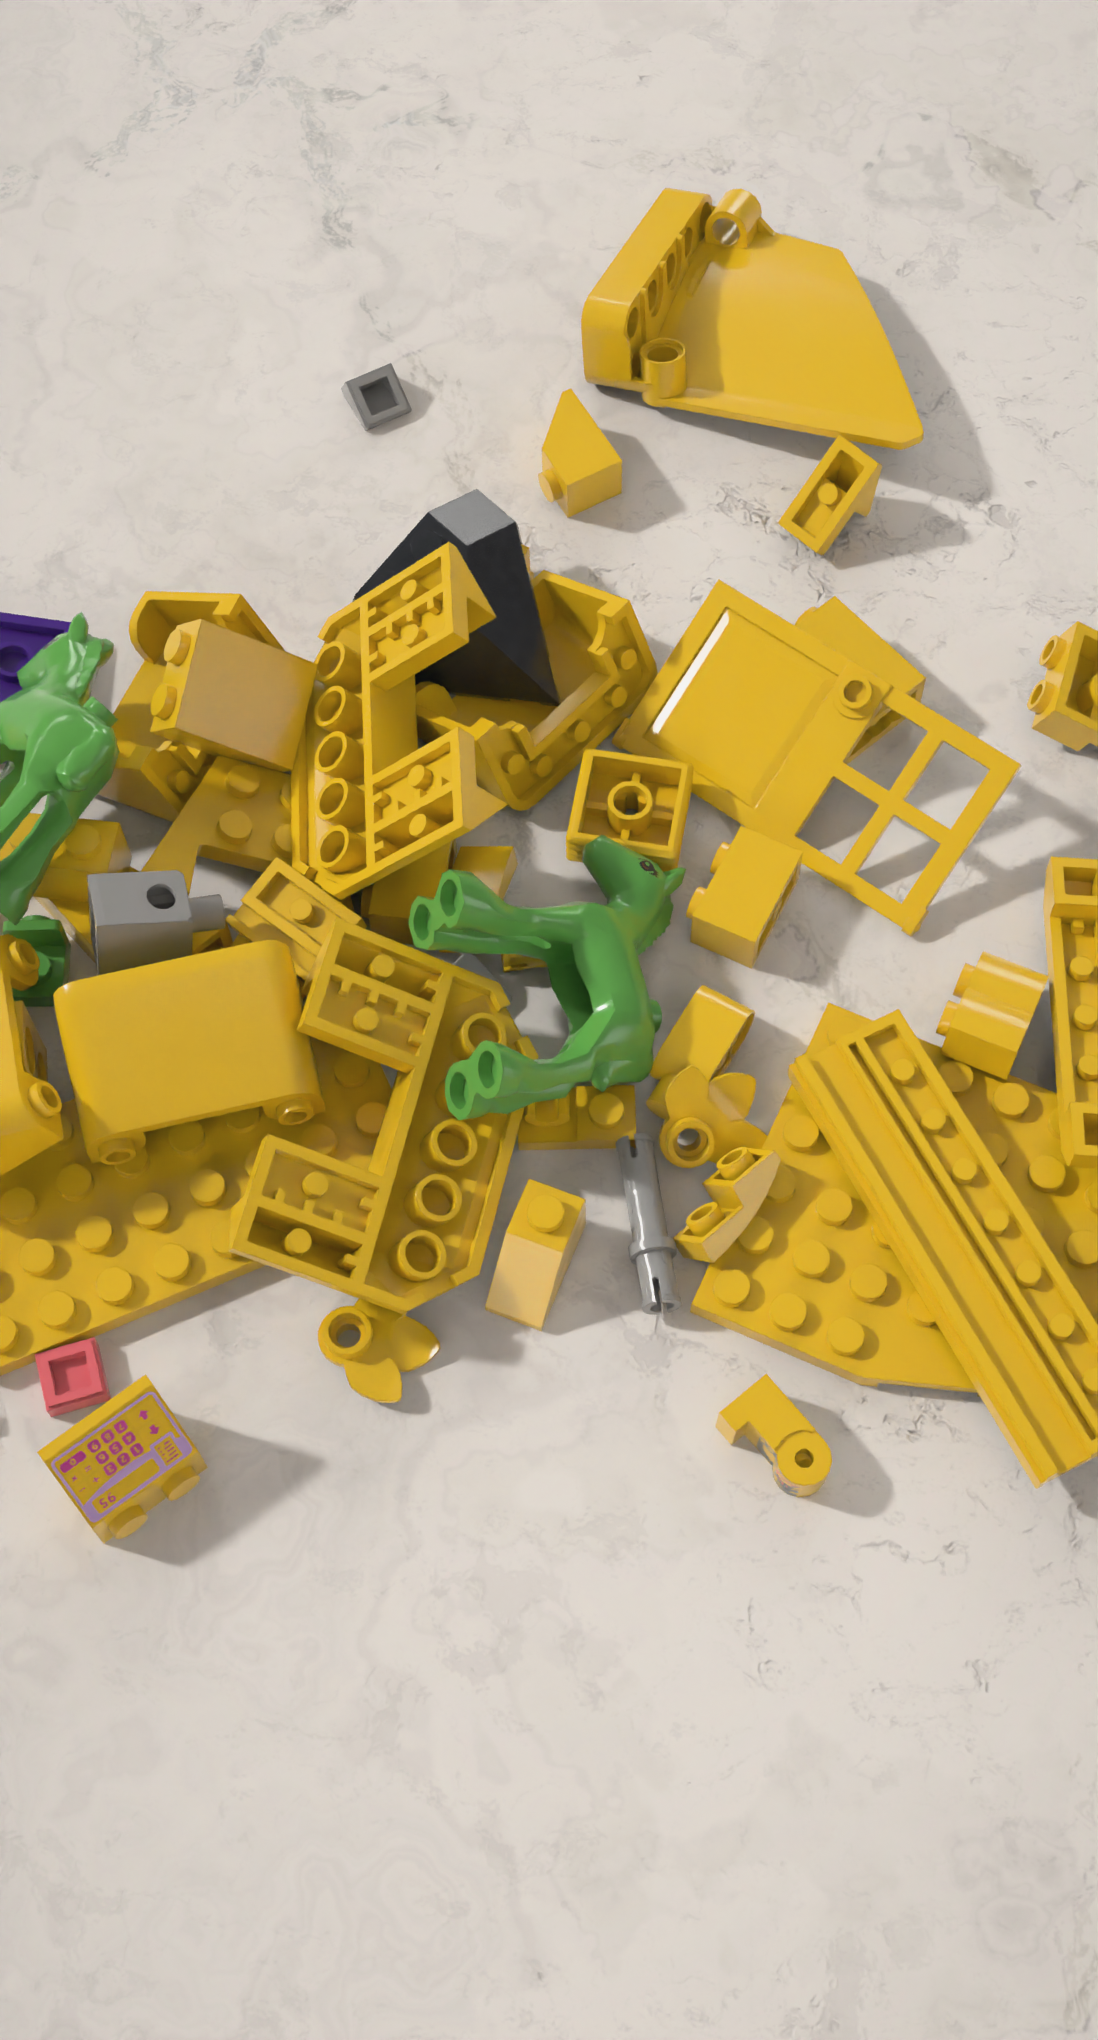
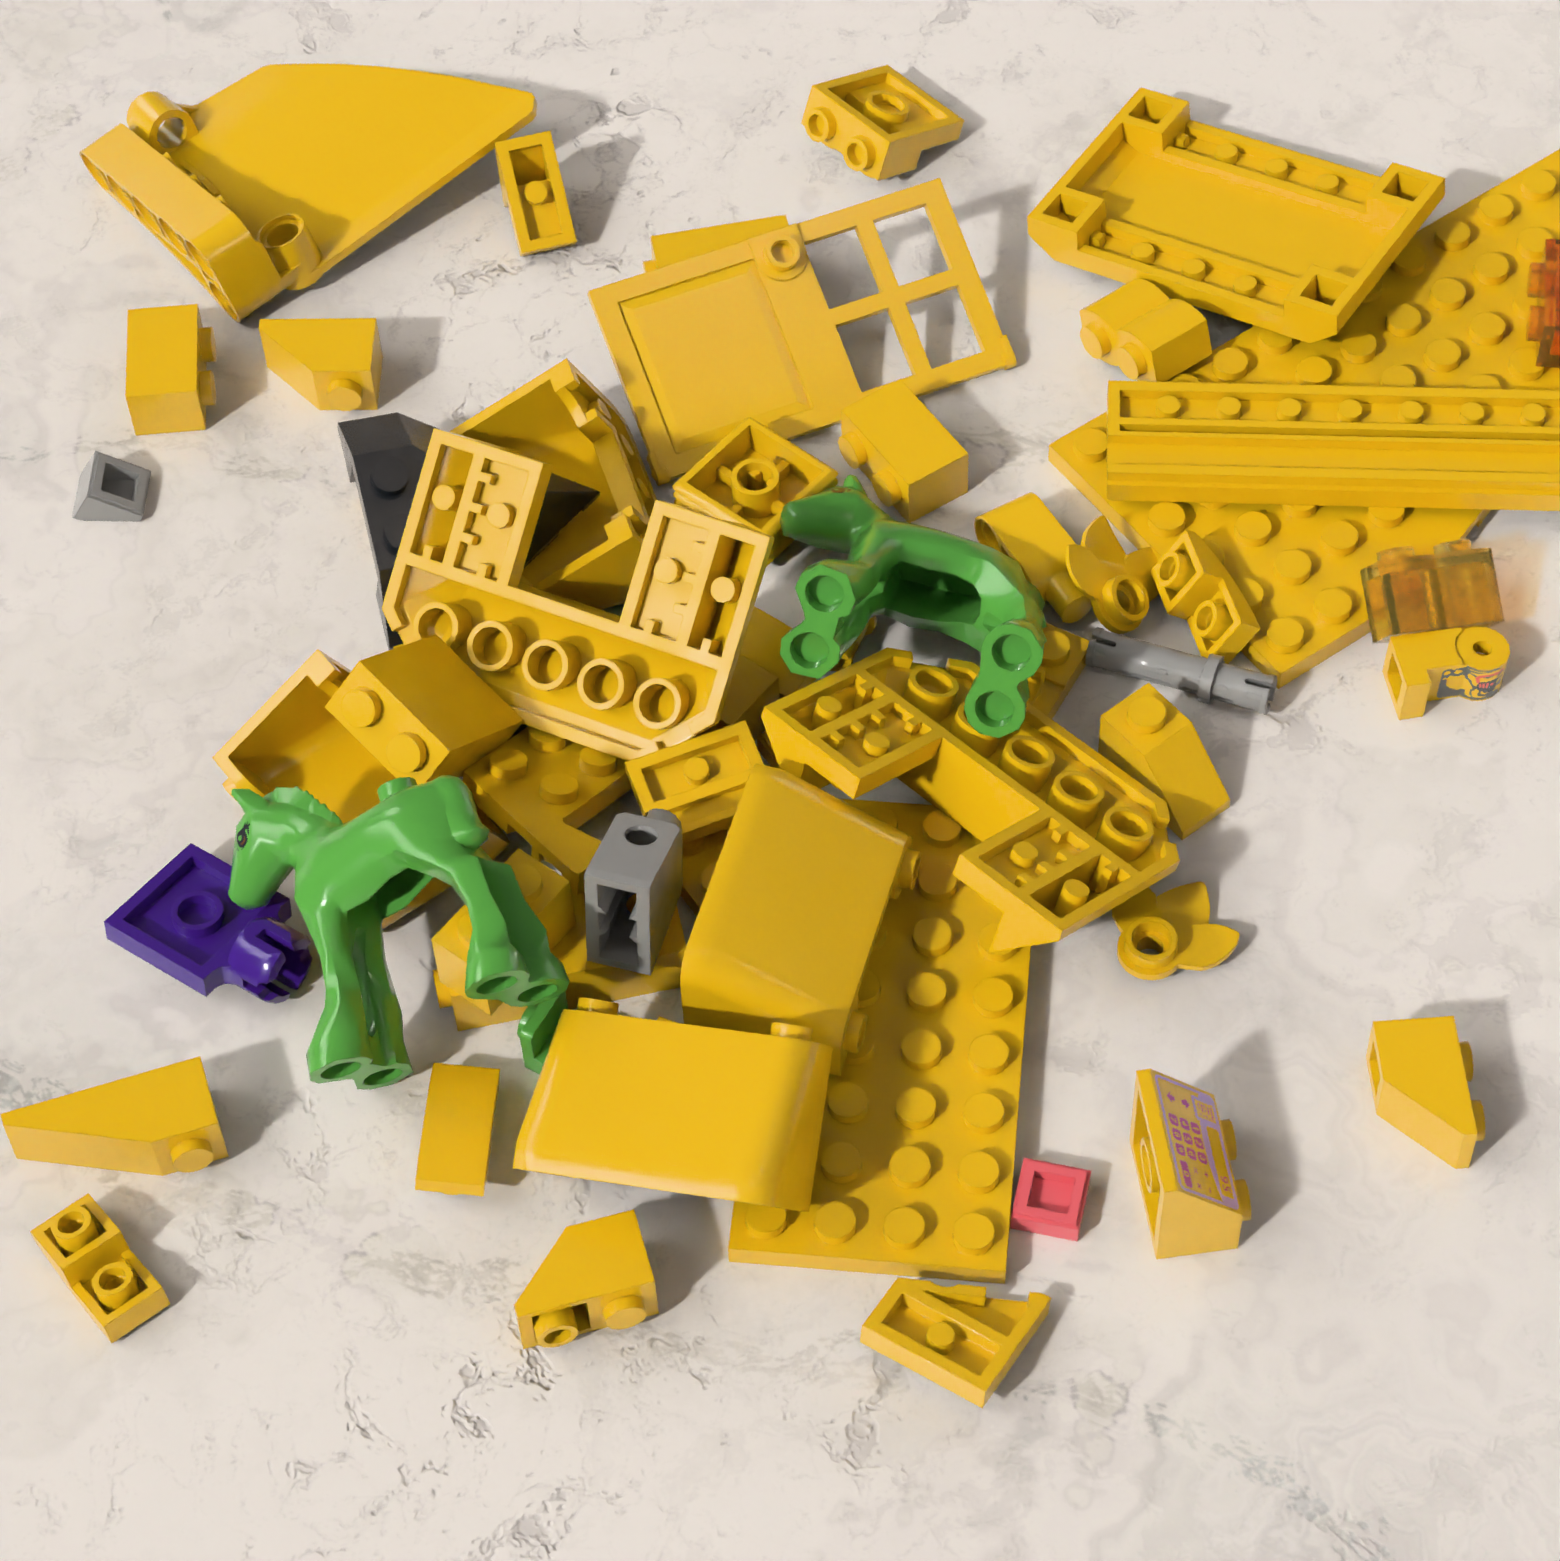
camera: 60 degrees left, 10 degrees down
(316, 1618) = (1422, 1085): none -> yellow slope
(501, 362) = (168, 369): none -> yellow brick
(840, 1387) = (1431, 591): none -> clear yellow brick

